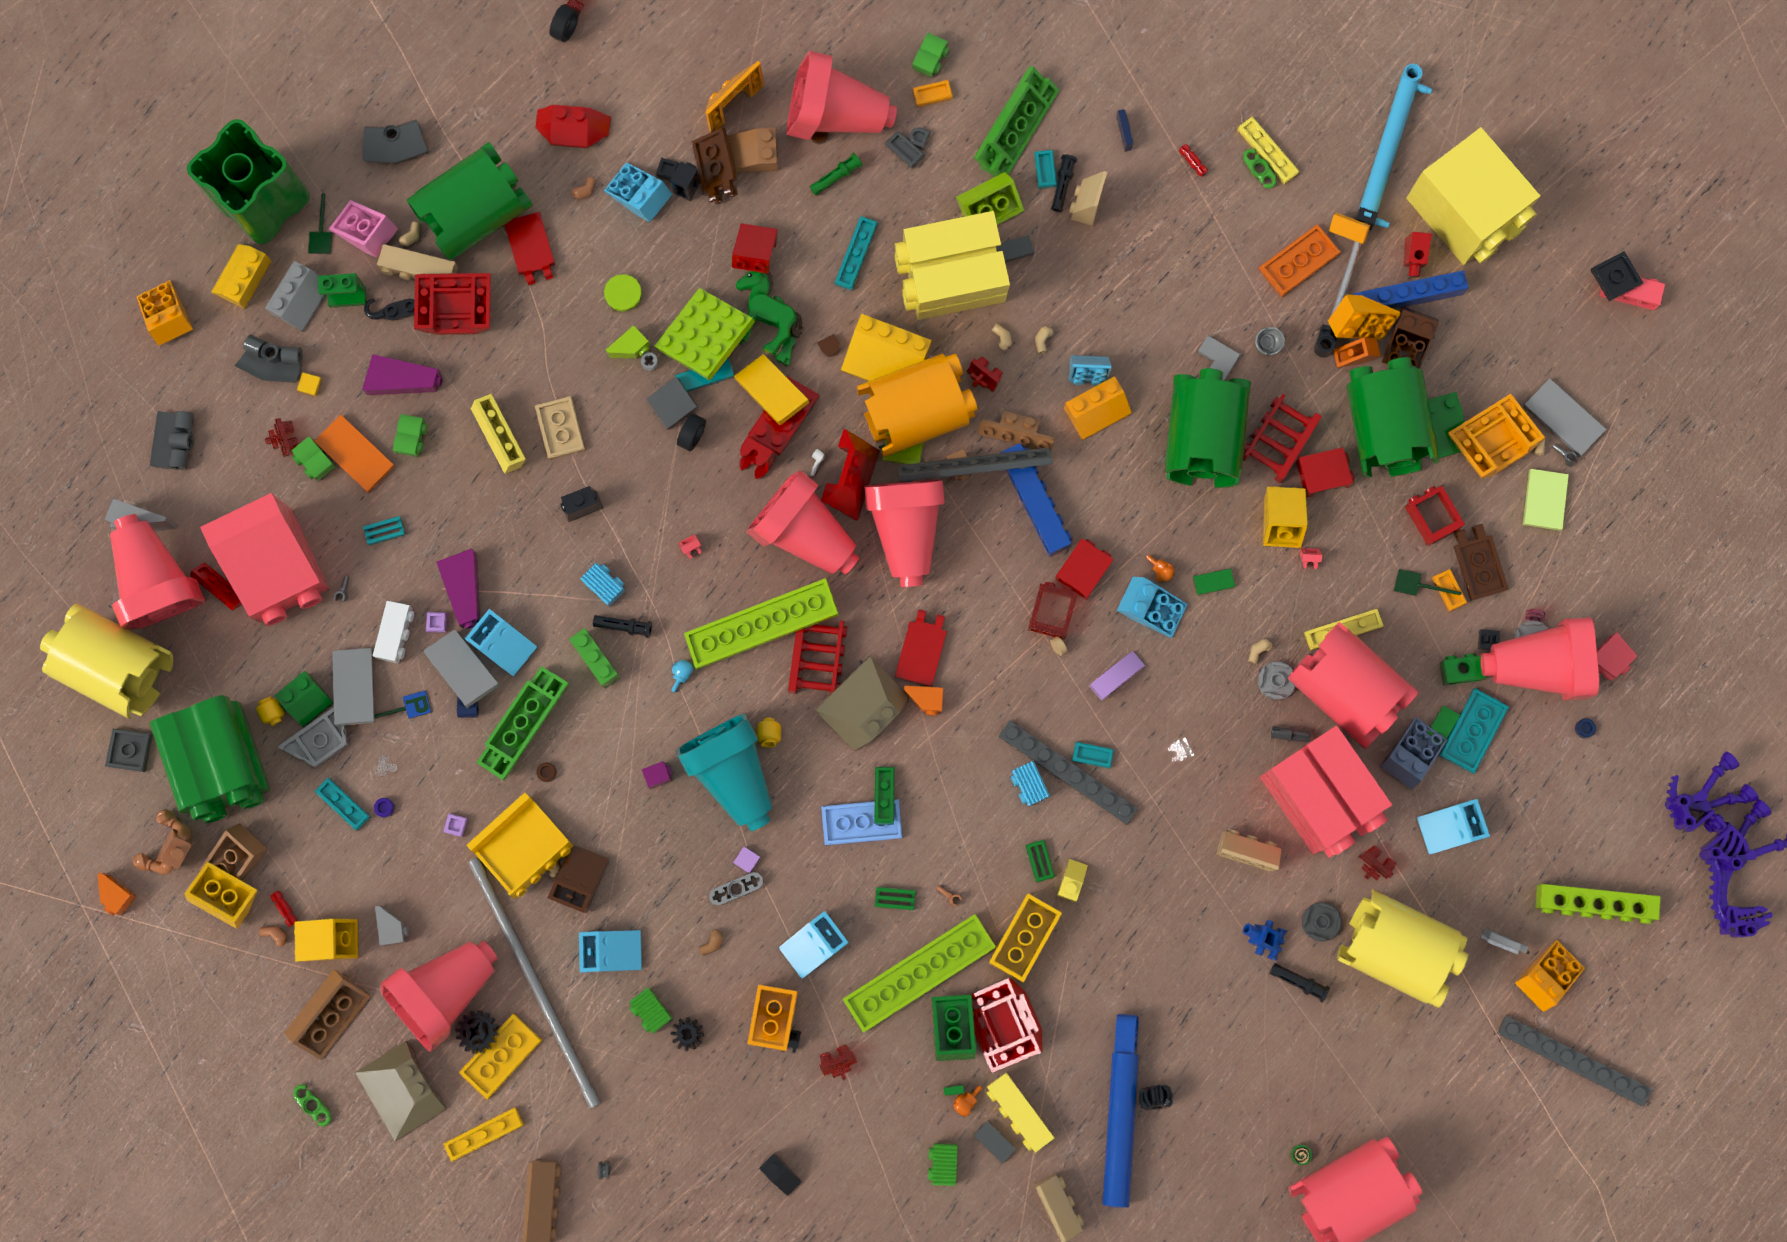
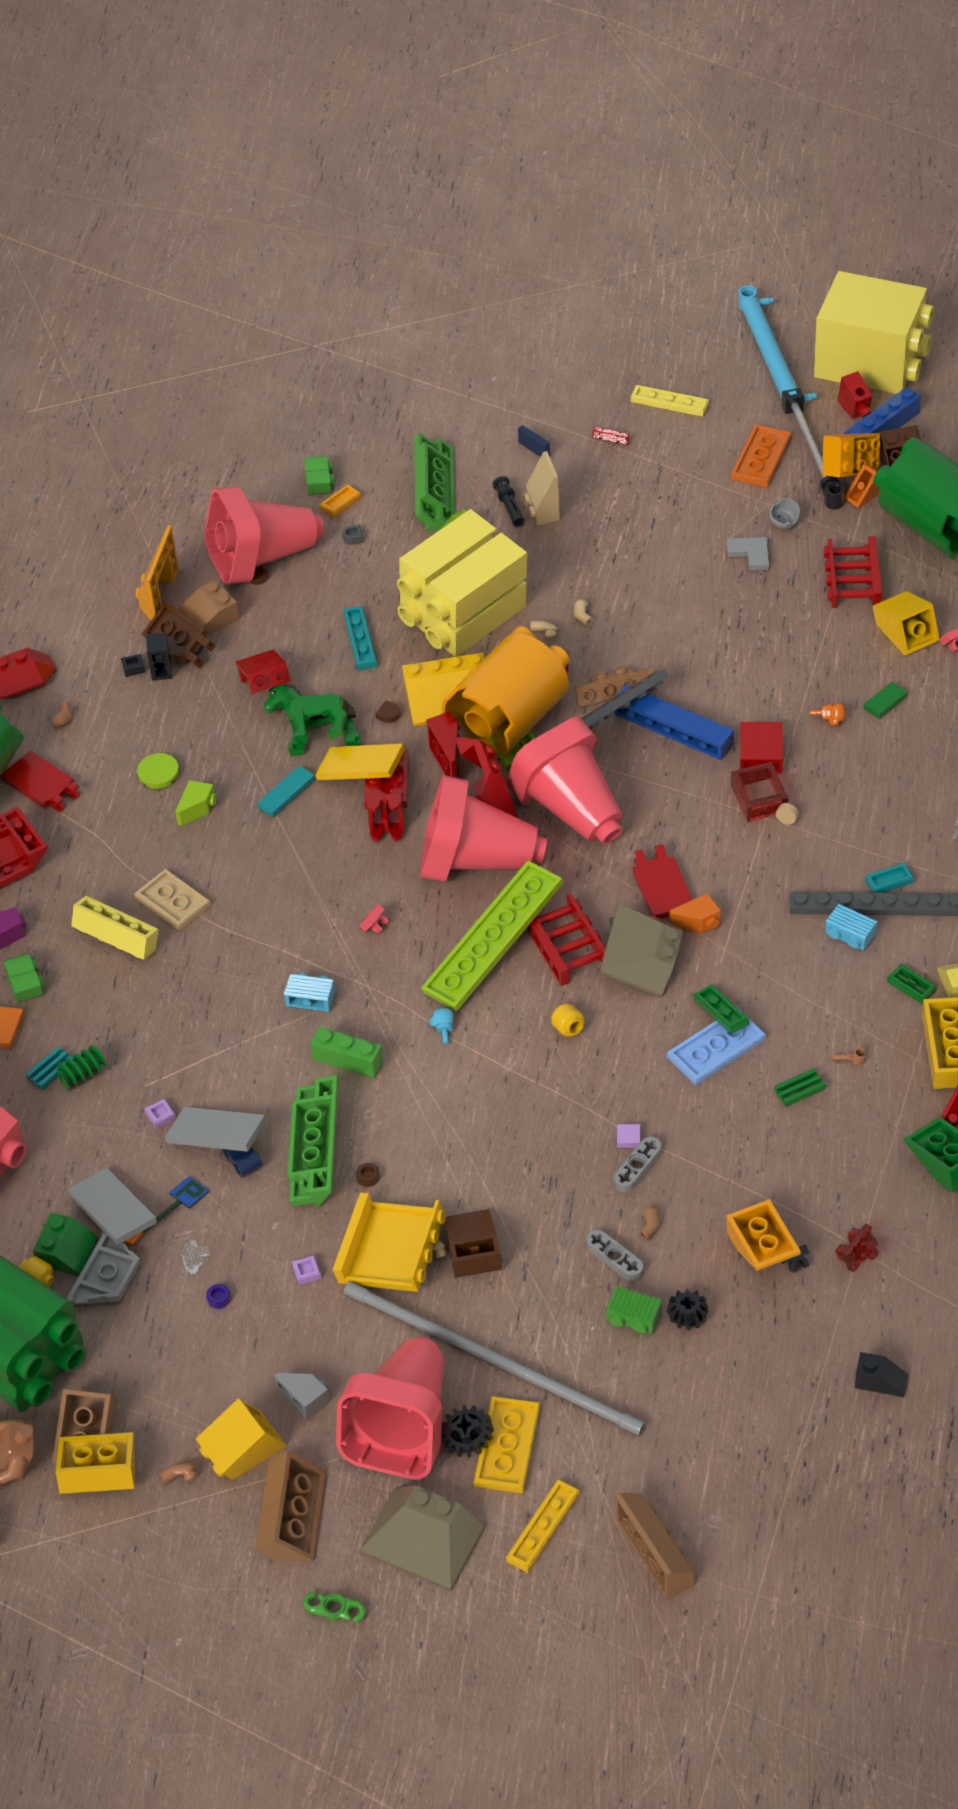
camera: 30 degrees left, 30 degrees down
(283, 908) = (173, 1443): red axle -> none
(342, 590) = (40, 1137): flat silver hand -> none
(342, 804) = (171, 1317): teal tile -> none
(393, 632) = (122, 1140): white brick -> none
(401, 549) = (80, 1066): none -> green piece
(462, 586) = (166, 1067): magenta slope -> none
(501, 642) = (240, 1088): medium azure slope -> none
(580, 503) = (238, 939): black torso -> none
(604, 1170) = (697, 1479): dark grey bush -> none
(610, 951) = (549, 1283): medium azure slope -> none
(632, 626) = (363, 1011): black pin -> none
(638, 191) = (118, 690): medium azure slope -> none
(643, 361) = (223, 812): light grey bush -> none
(657, 774) = (483, 1112): magenta brick -> none
(672, 403) = (270, 823): dark grey tile -> none
(677, 957) = (618, 1265): none -> light grey beam
(691, 432) = (307, 830): black tyre -> none
(704, 334) = (263, 753): lime plate -> none
(730, 770) = (555, 1054): teal cone -> none
(813, 945) = (753, 1160): slope -> none
(843, 170) = (300, 586): green pin -> none
(846, 416) = (442, 743): none -> red slope
(904, 149) = (346, 548): dark grey tile -> none
(919, 973) = (874, 1132): lime plate -> none
(1045, 169) = (485, 502): teal tile -> none
(1089, 369) = (644, 603): medium azure slope -> none
(1098, 408) = (673, 631): light orange slope -> none
(1116, 675) = (858, 809): lavender slope -> none
(1152, 606) = (844, 742): medium azure slope -> none
(1207, 428) = (785, 583): green brick -> none
(1251, 165) = (663, 415): bright green piece -> none
(1324, 471) = (911, 573): red panel -> none
(1349, 228) = (785, 410): light orange tile -> none

